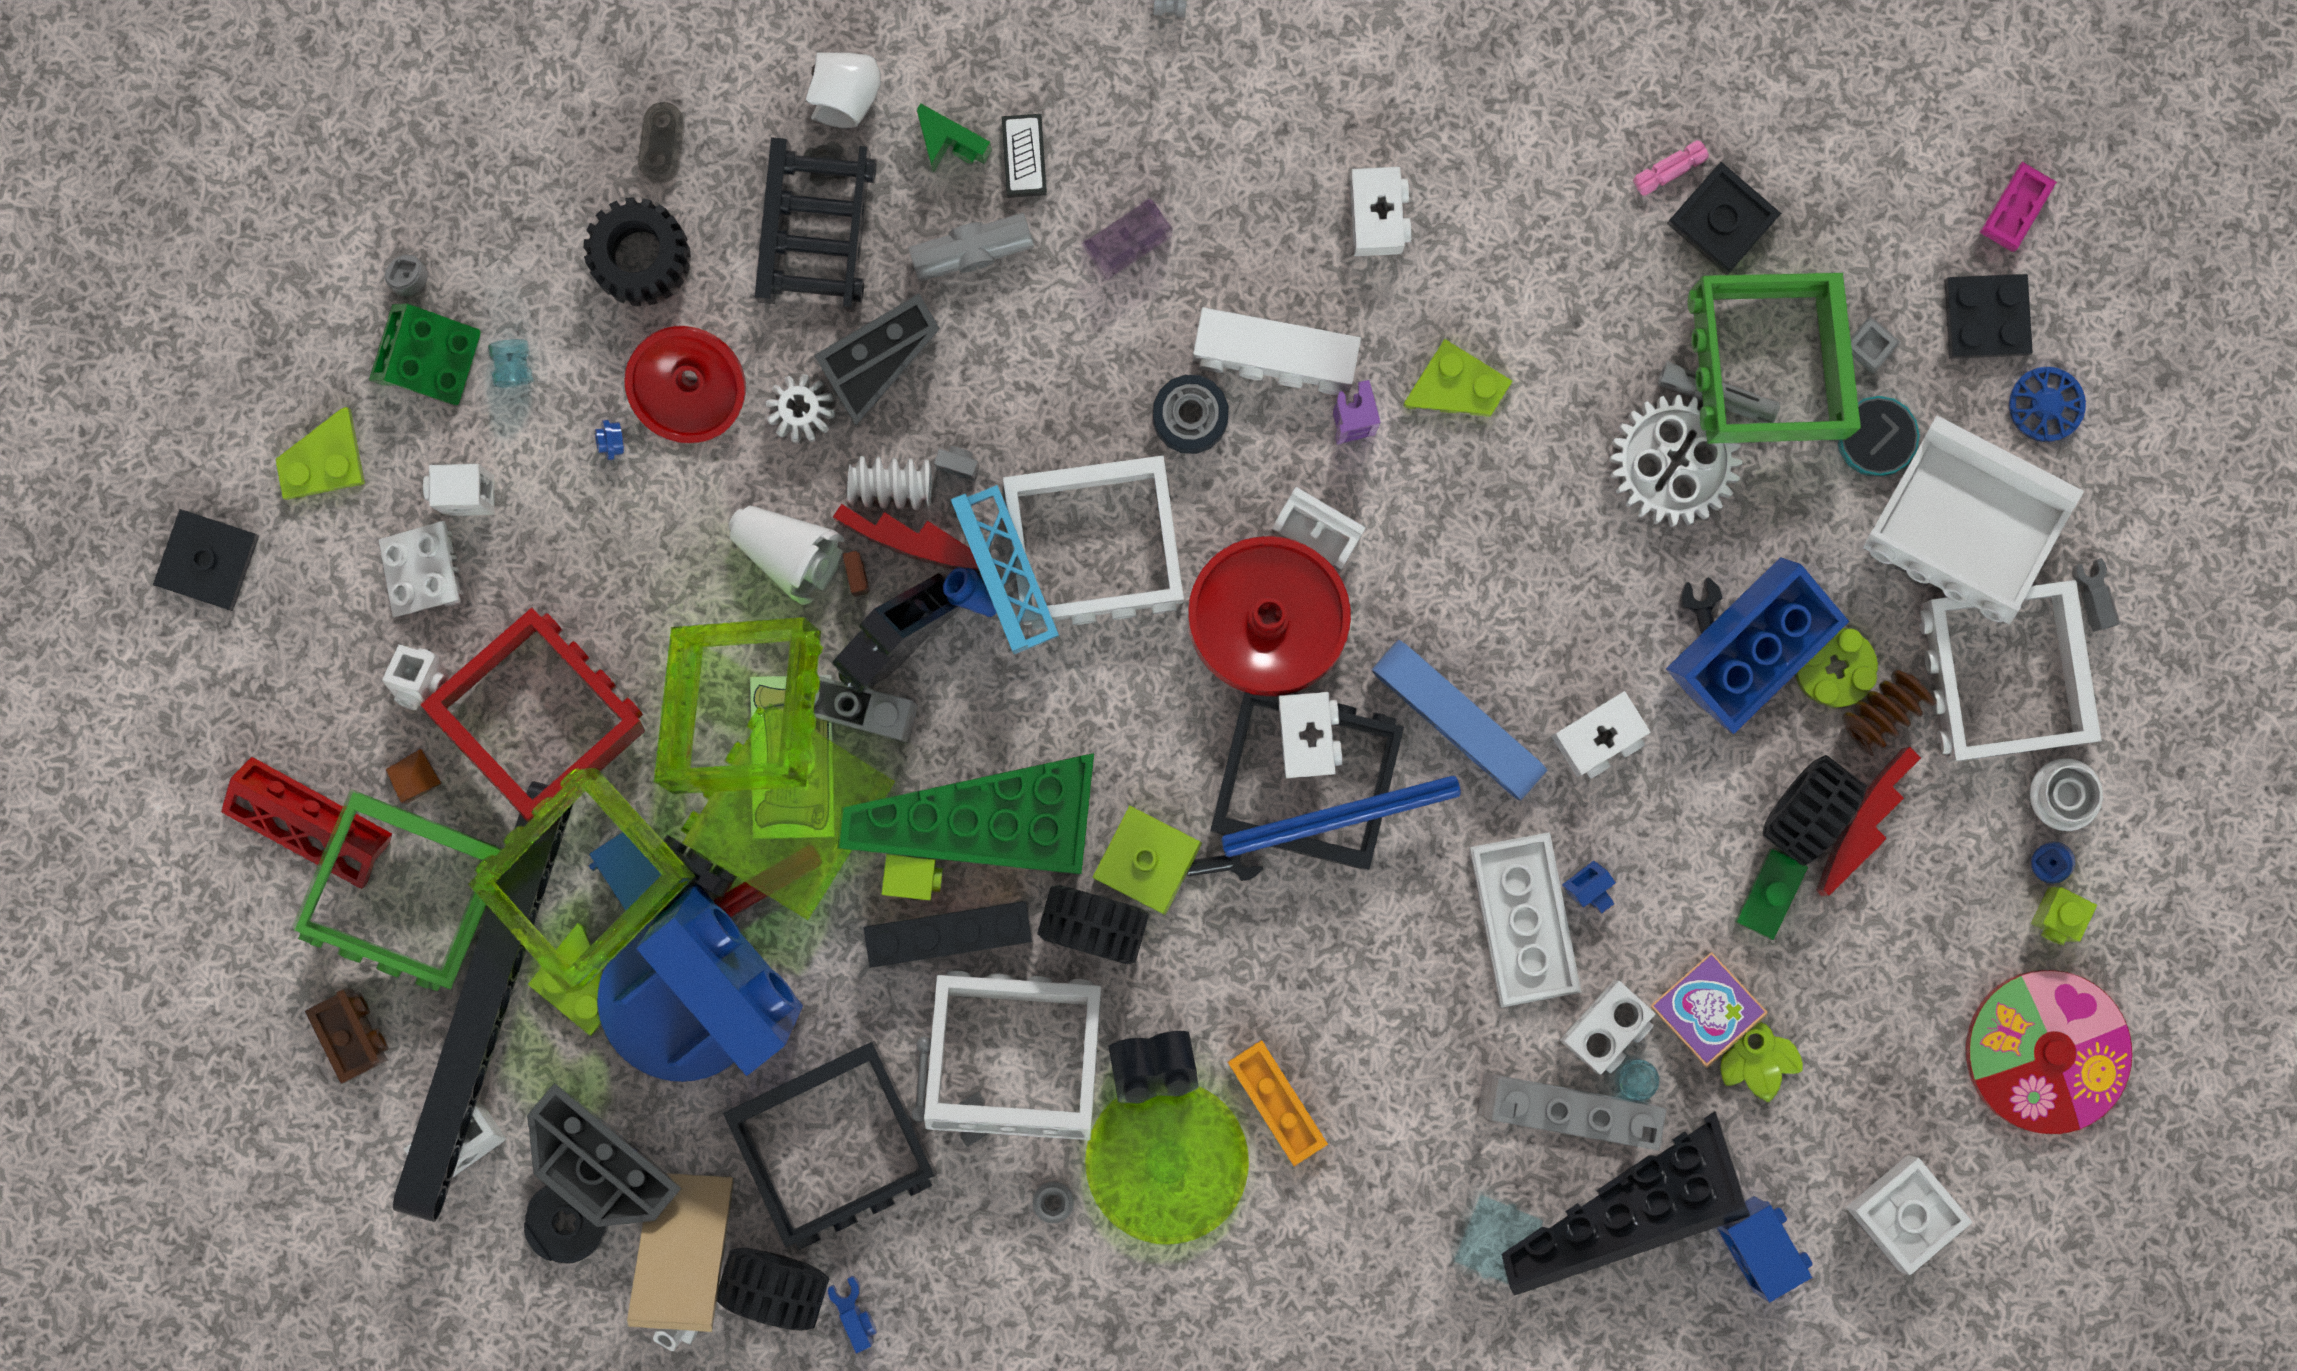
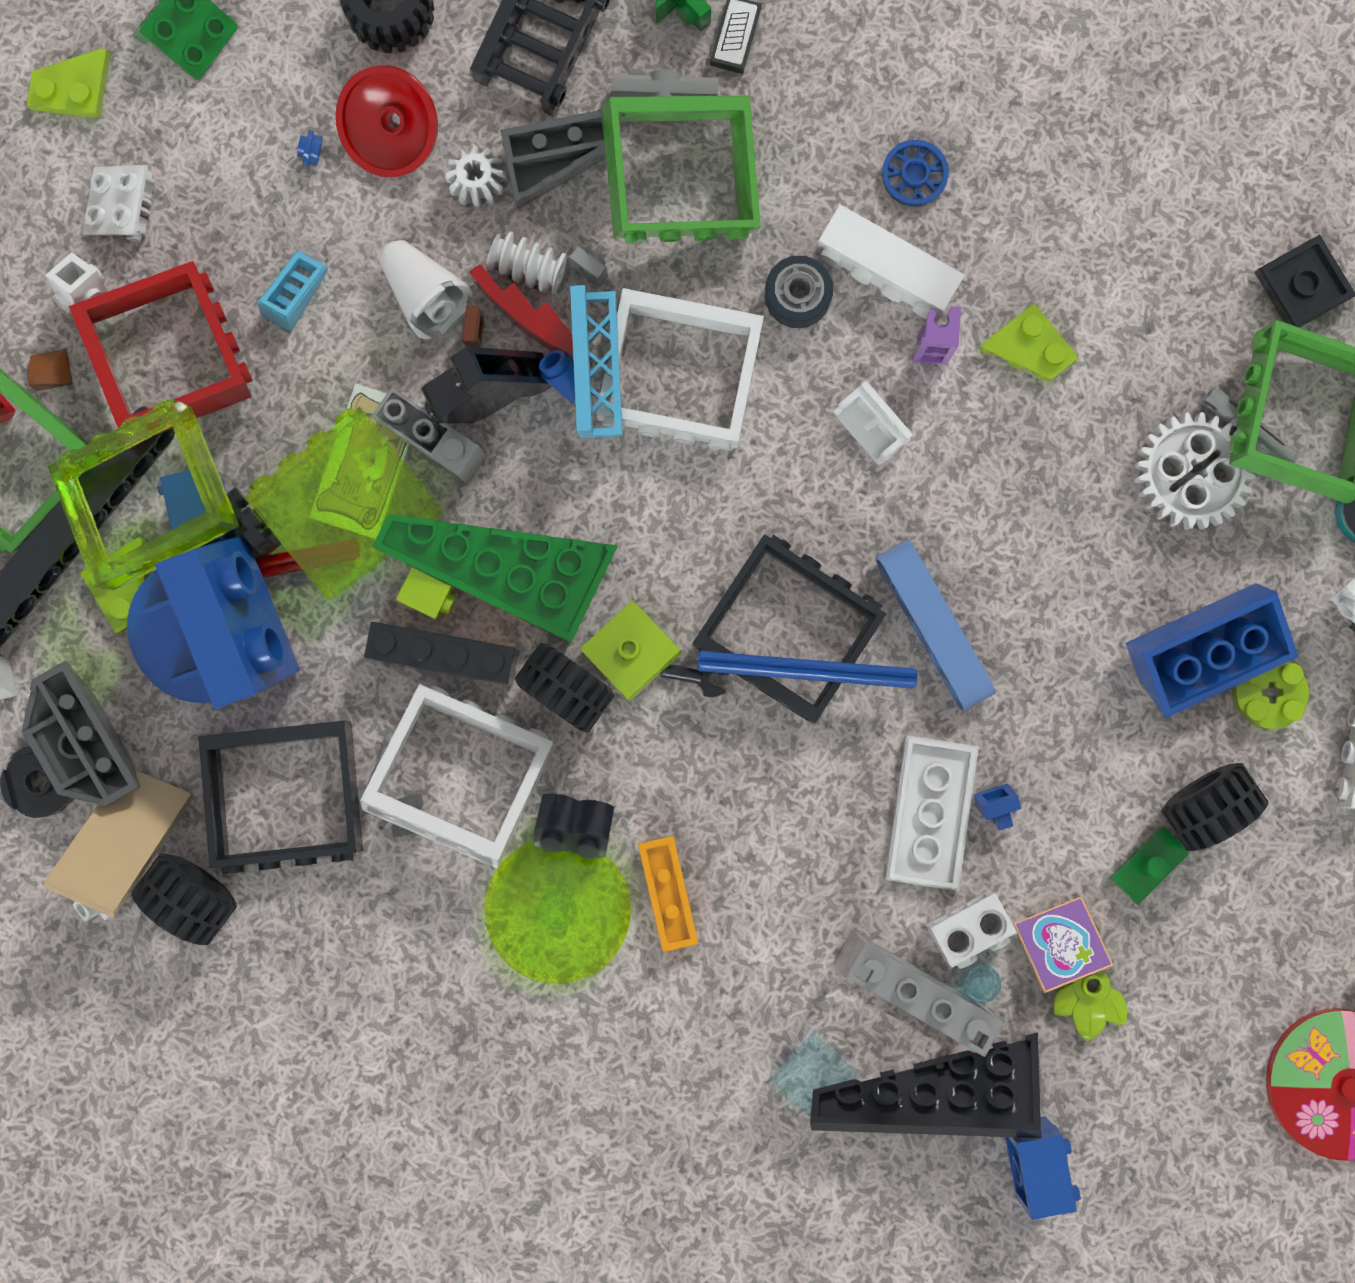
camera: 25 degrees right, 0 degrees up
(460, 489) = (169, 143): white brick -> none
(510, 363) = (251, 58): clear light blue wheel -> none
(638, 632) = (293, 309): none -> medium azure slope
(681, 699) = (290, 376): clear neon green window -> none
(857, 1324) = (248, 954): blue plate -> none
(1043, 1211) = (439, 914): light grey plate -> none
(1084, 298) = (683, 108): none -> bright green window
(1128, 239) = (798, 132): clear purple hinge -> none
(1269, 240) = (915, 173): none -> blue wheel
(1269, 616) = (805, 481): red dish -> none
(1297, 756) = (803, 567): white brick -> none
(1370, 233) = (1022, 158): white brick -> none
(1615, 715) = (1071, 670): white brick -> none
(1671, 168) = (1274, 227): bright pink axle -> none
(1704, 608) = (1174, 604): black bar -> none
(1860, 835) = (1248, 843): red slope -> none
(1886, 709) = (1302, 742): reddish brown piece -> none
(1909, 1214) = (1176, 1182): white container -> none

